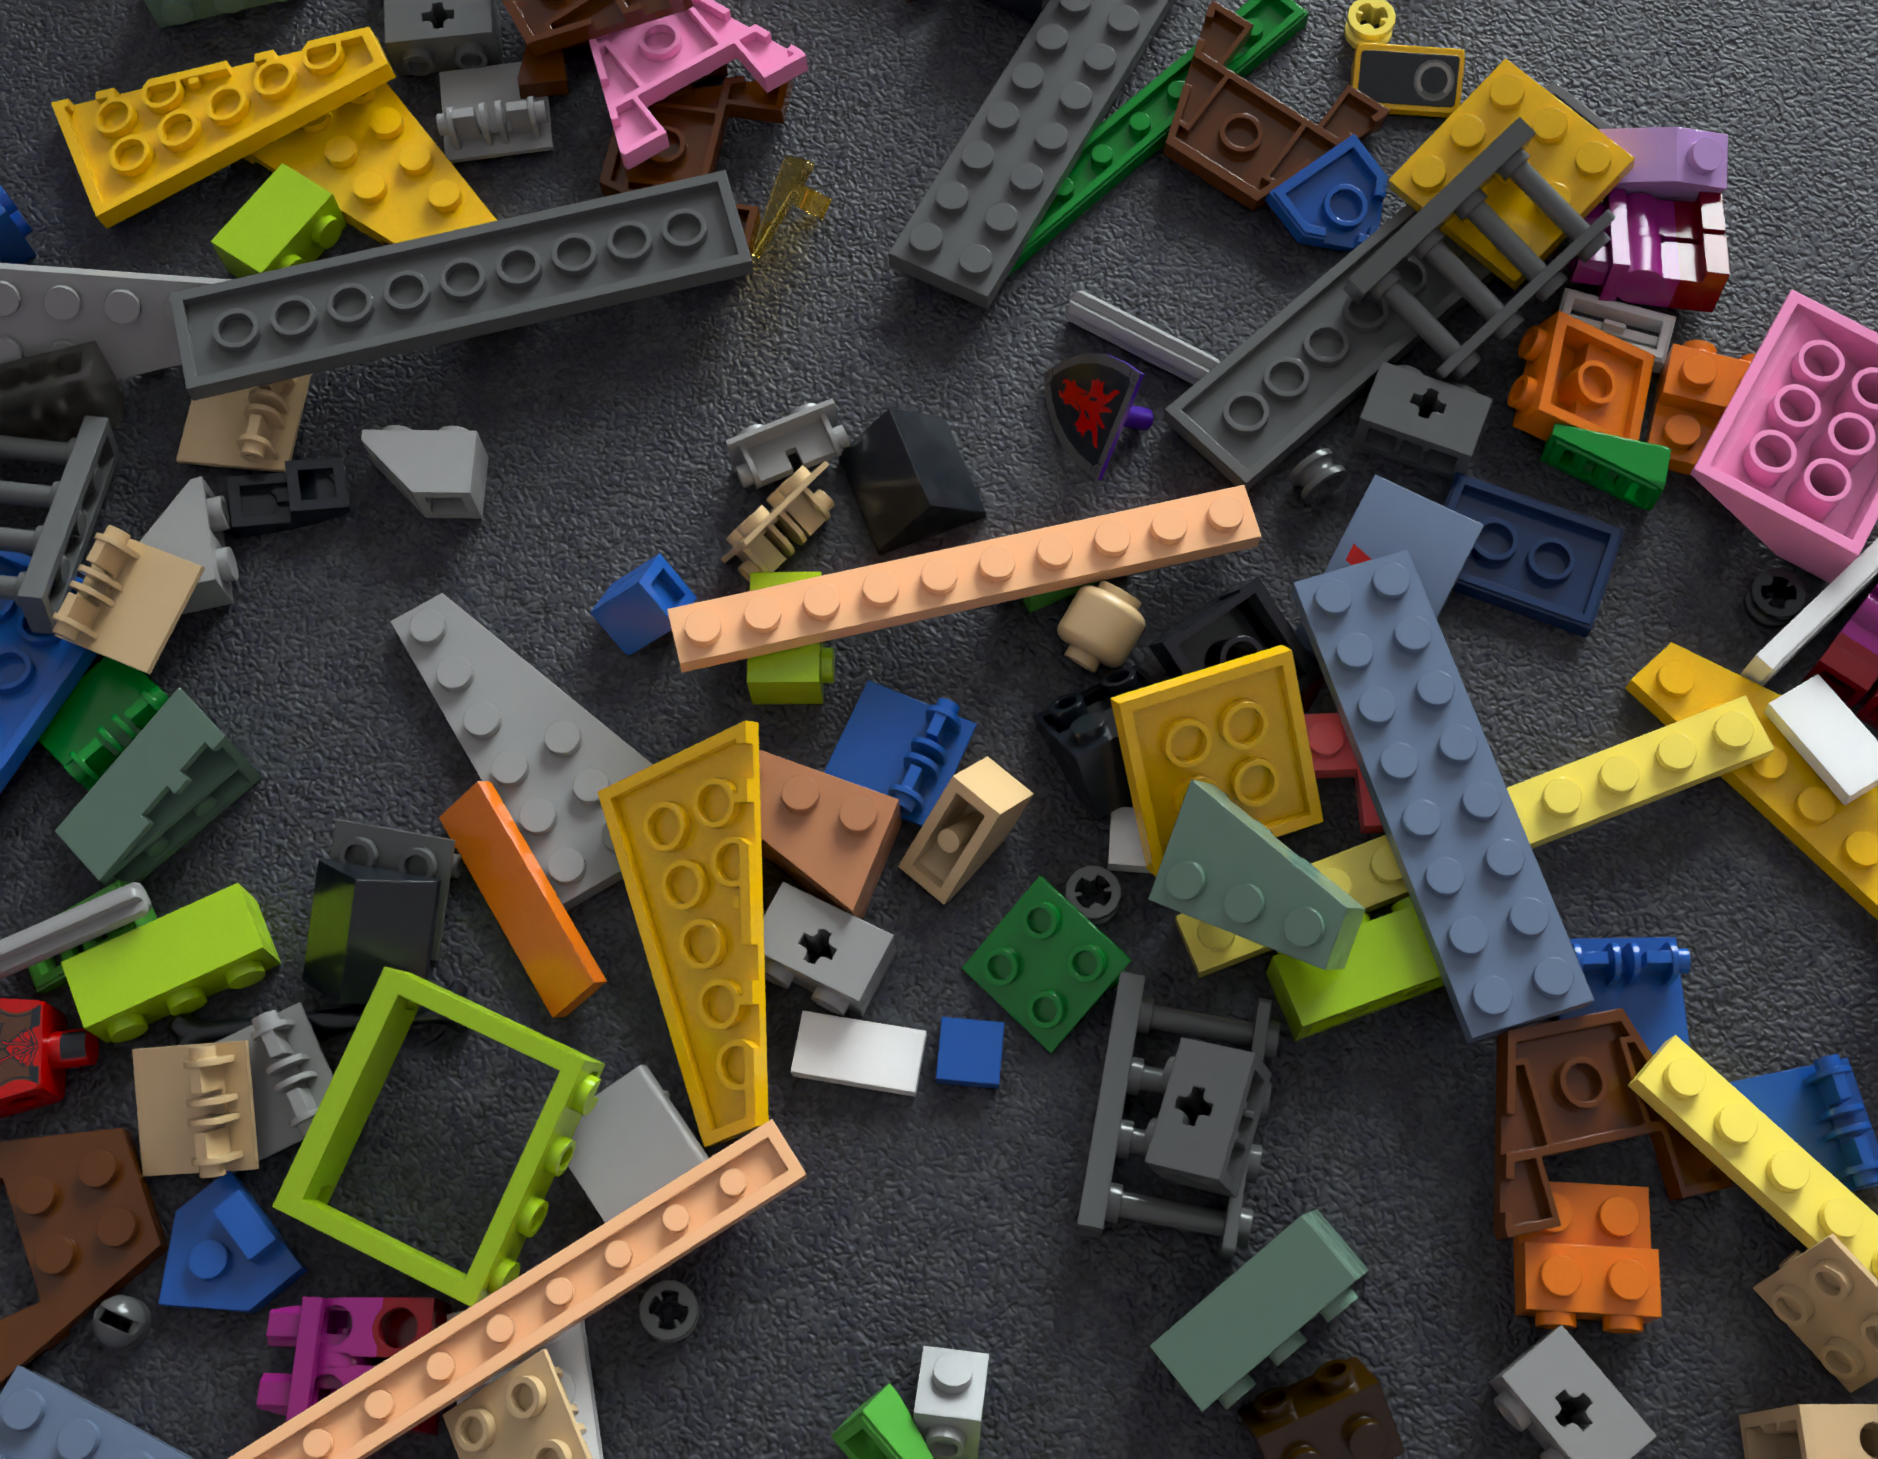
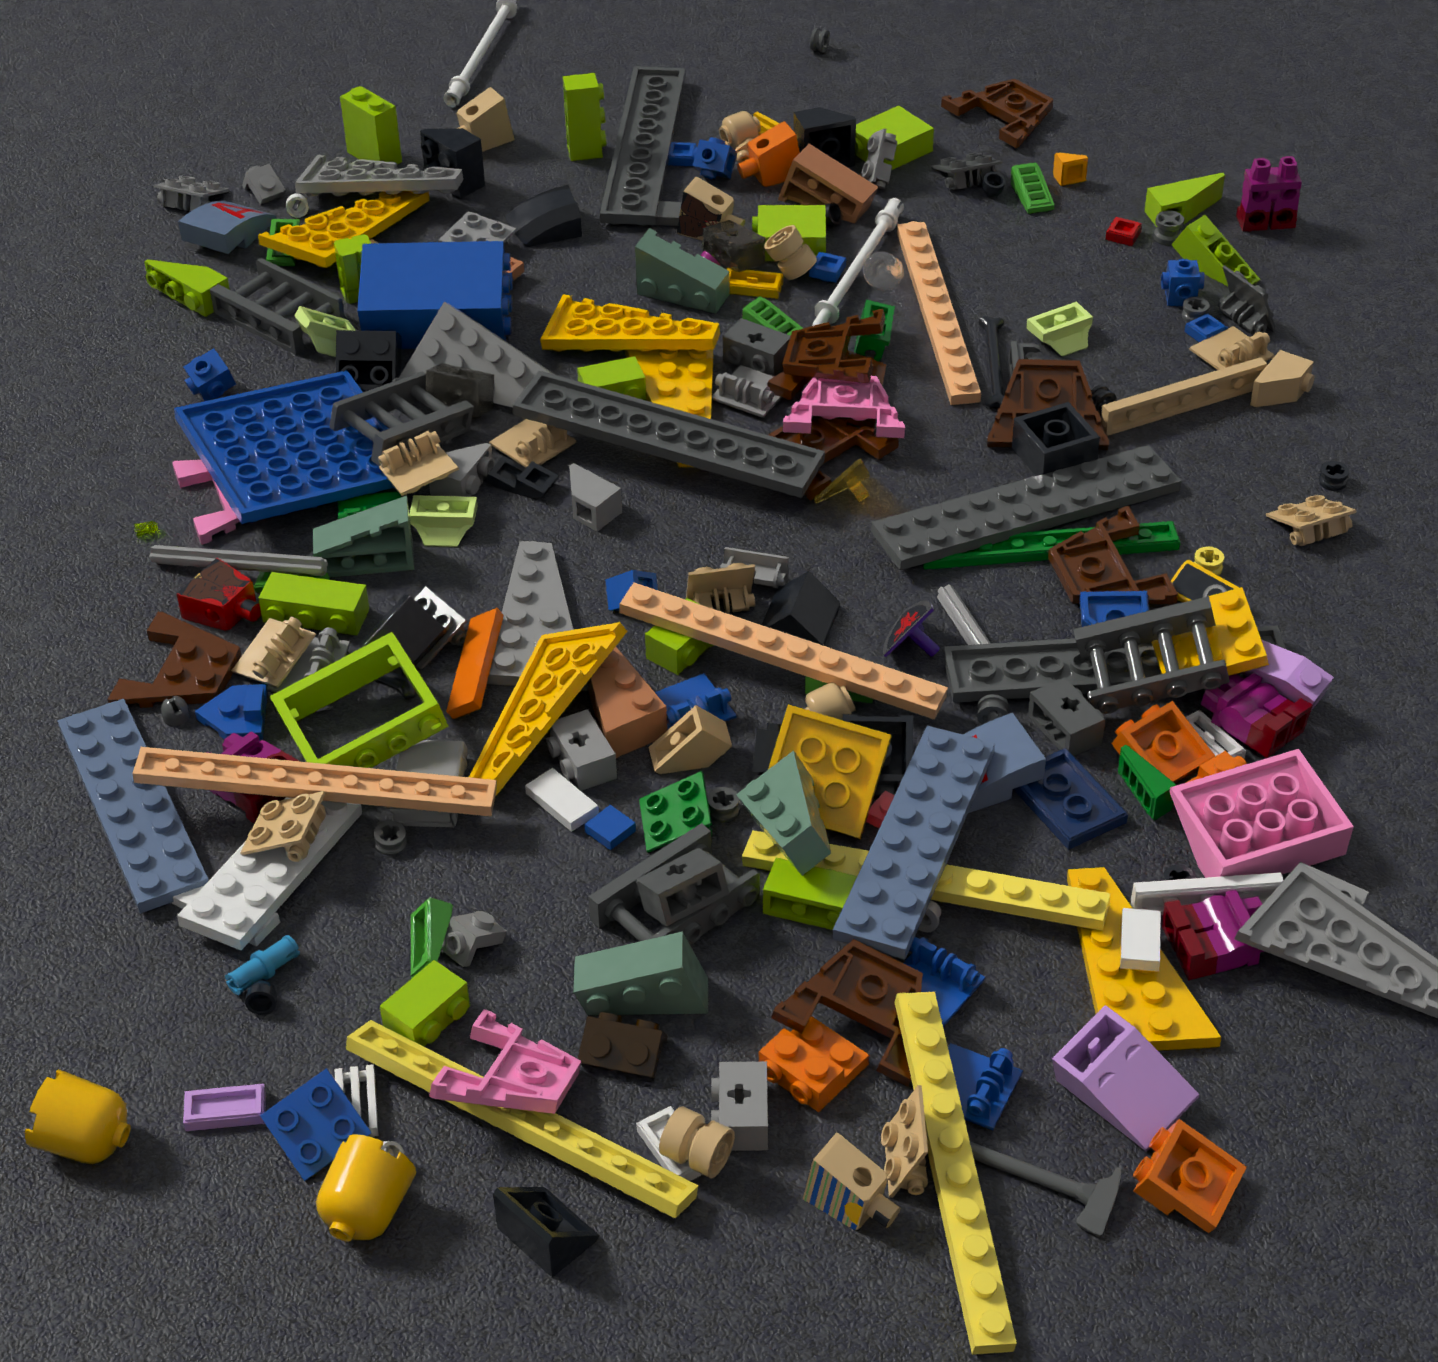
camera: 35 degrees right, 25 degrees down
(234, 659) = (442, 519): none -> yellowish green slope

